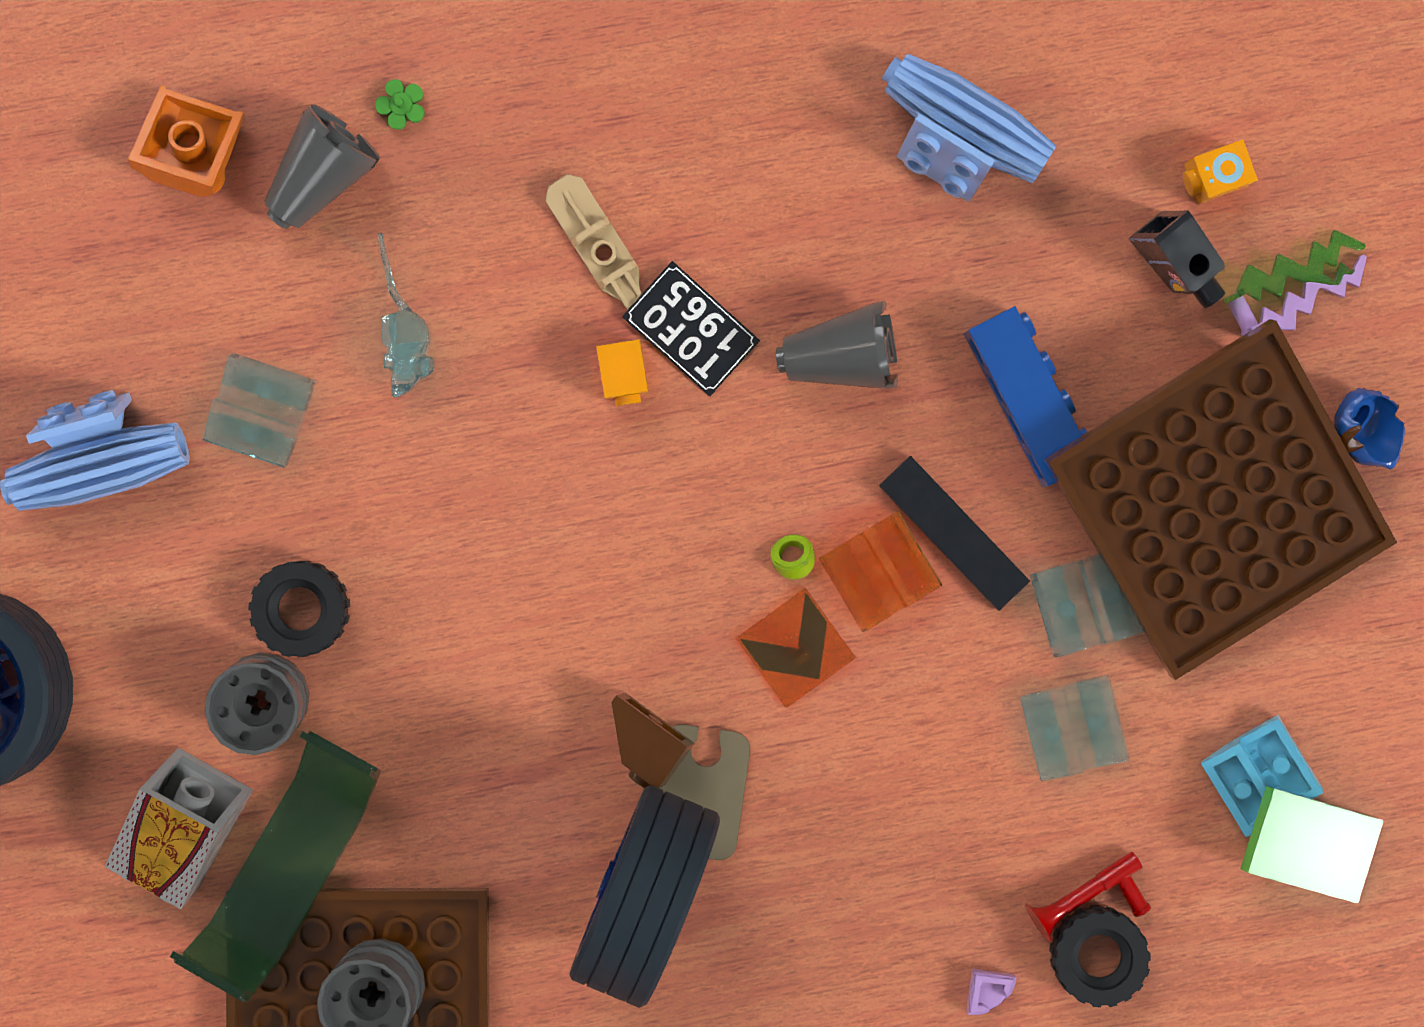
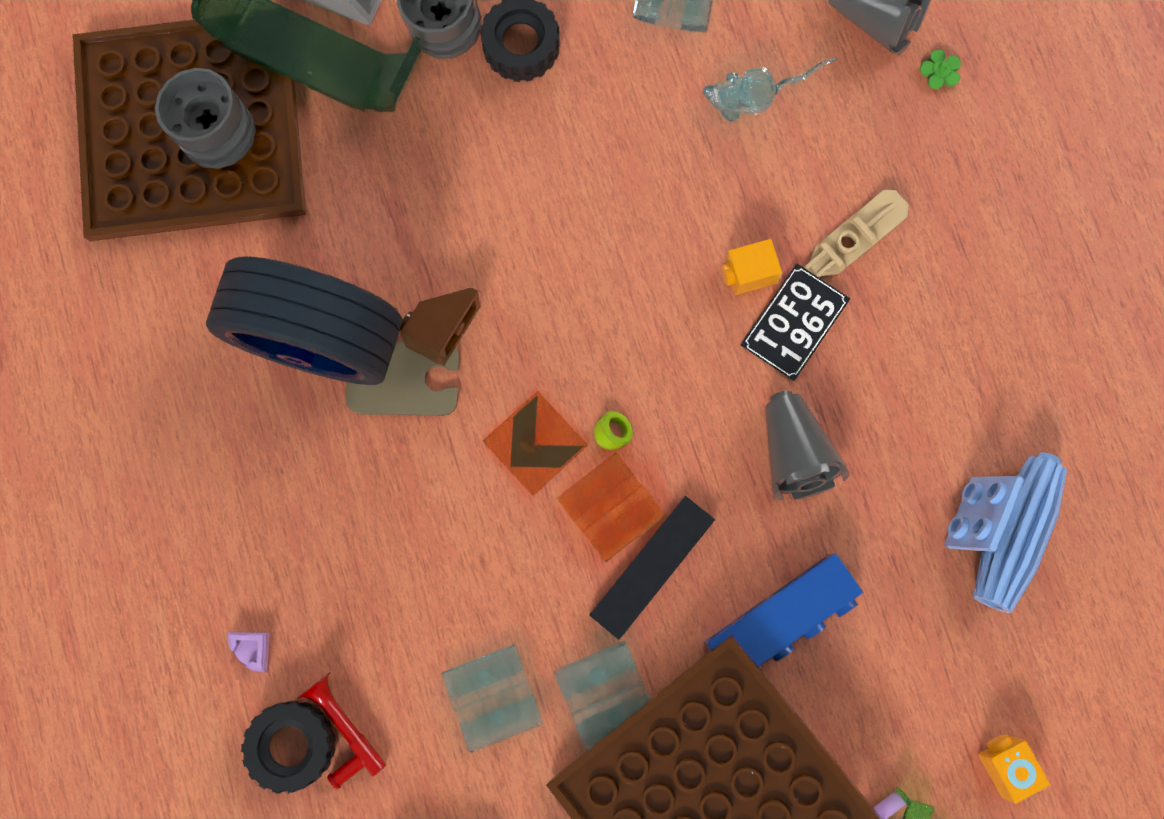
camera: 80 degrees right, 10 degrees down
(1181, 255) = (946, 734): black torso -> none

